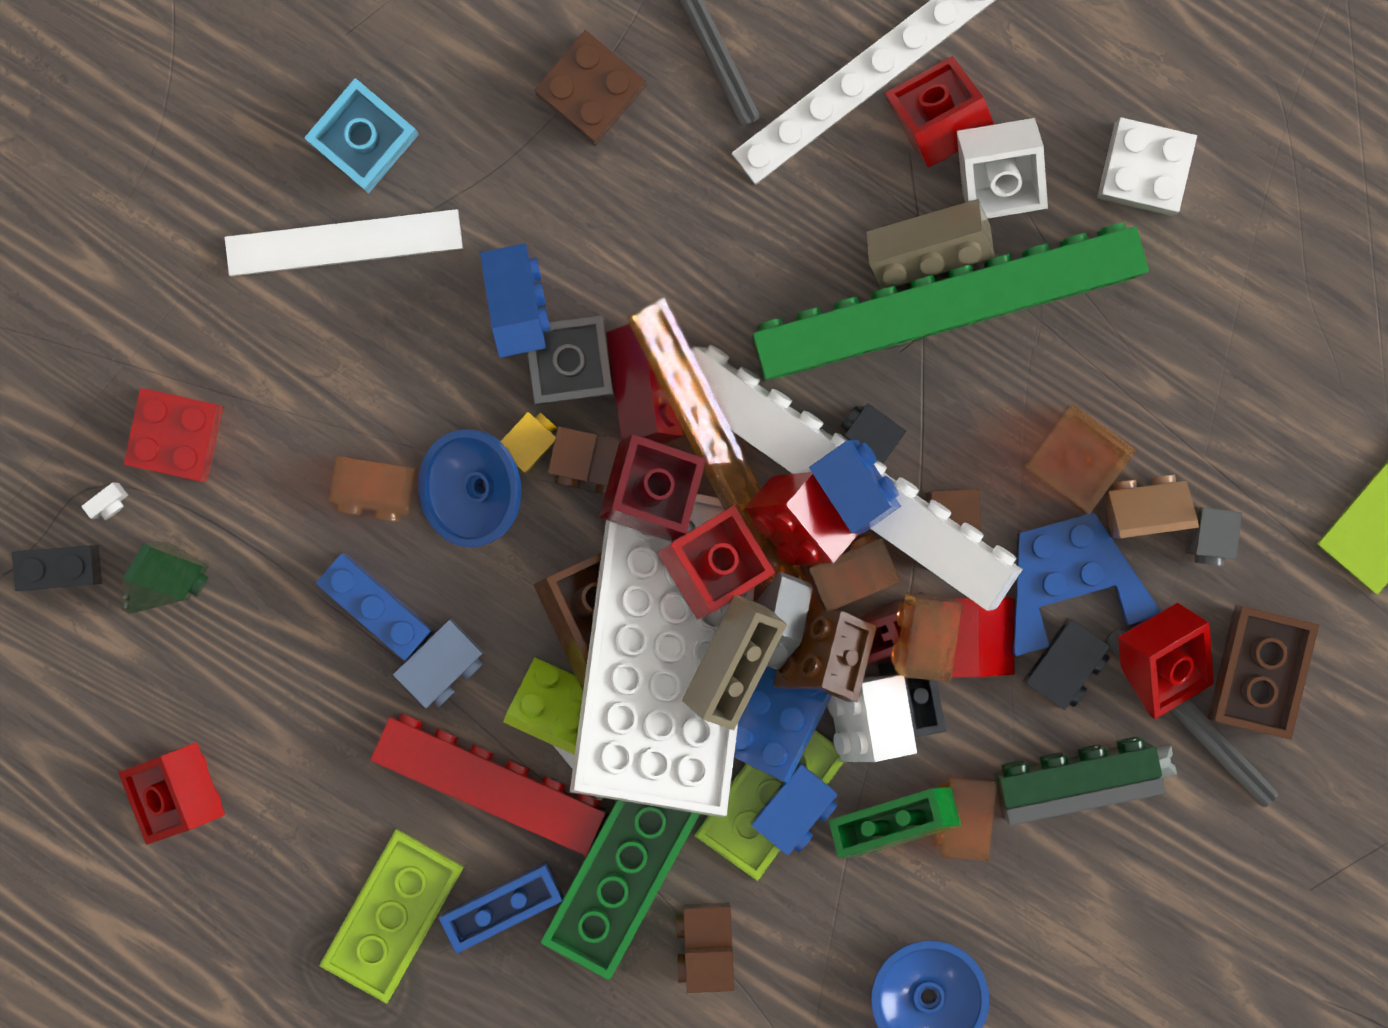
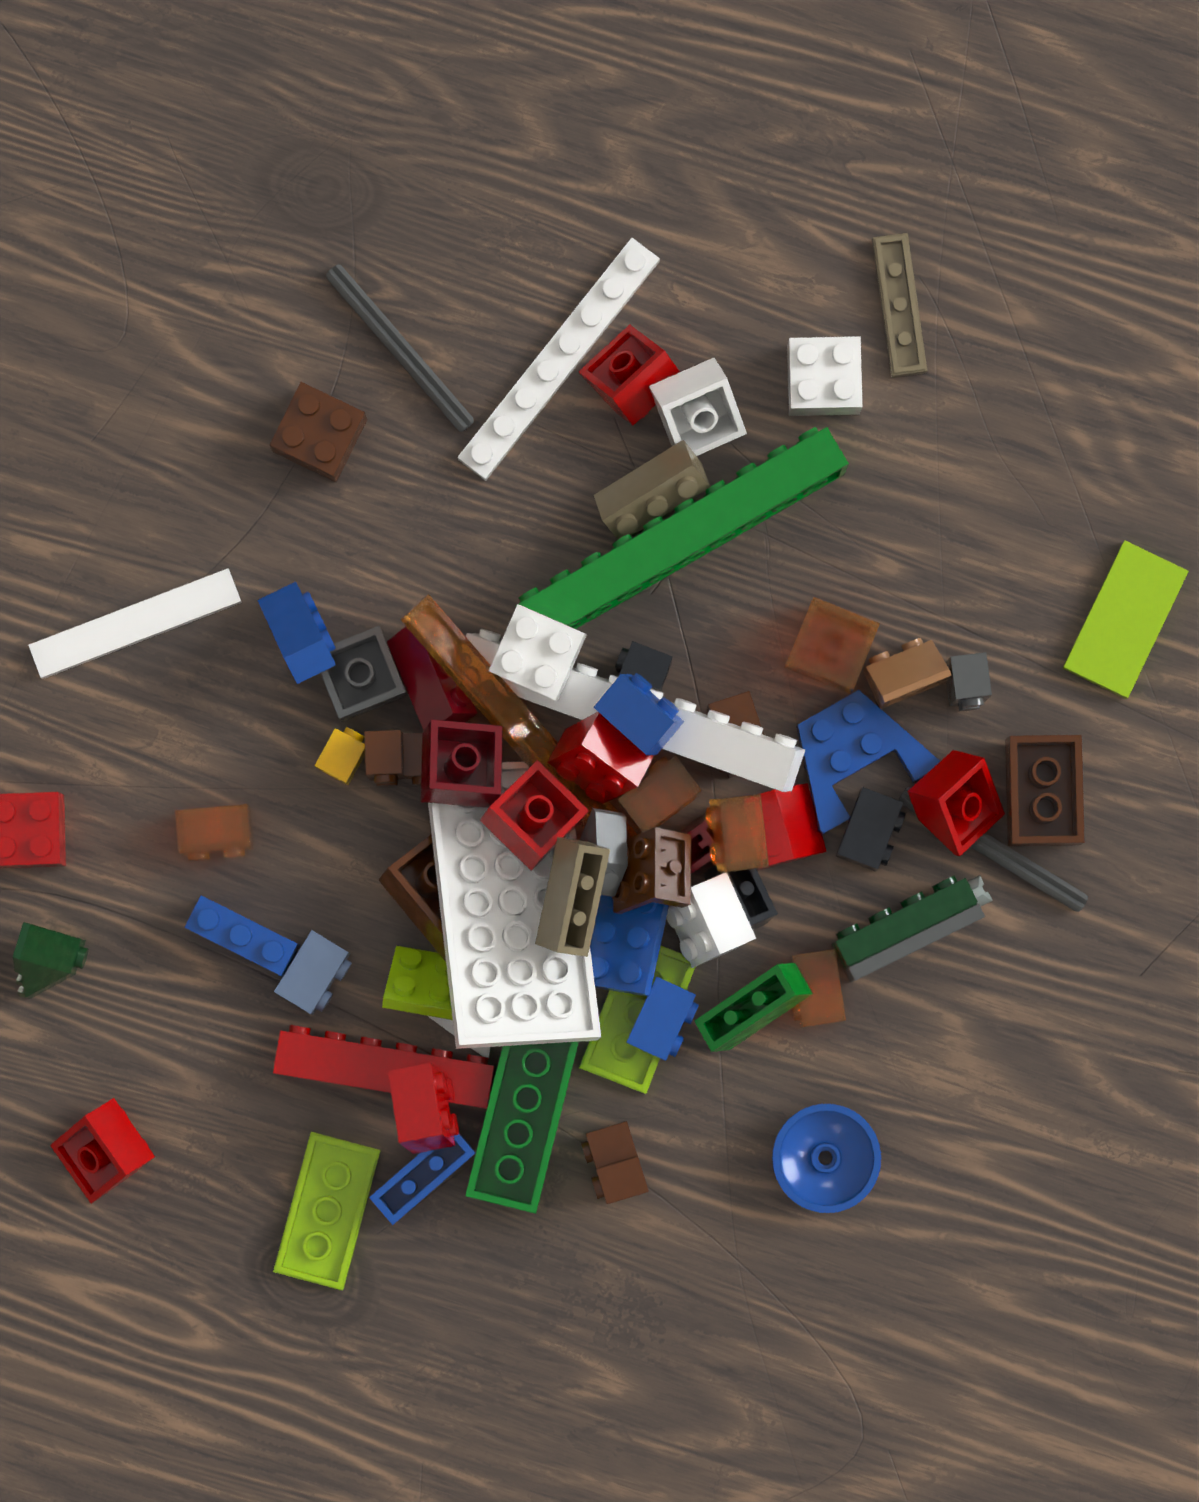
camera: 15 degrees left, 5 degrees down
(361, 135) = (127, 524): medium azure brick -> none
(453, 489) = (285, 811): blue dish -> none
(519, 843) = (422, 1108): none -> red brick
(764, 391) = (537, 652): none -> white brick
(1246, 109) = (899, 305): none -> dark tan tile

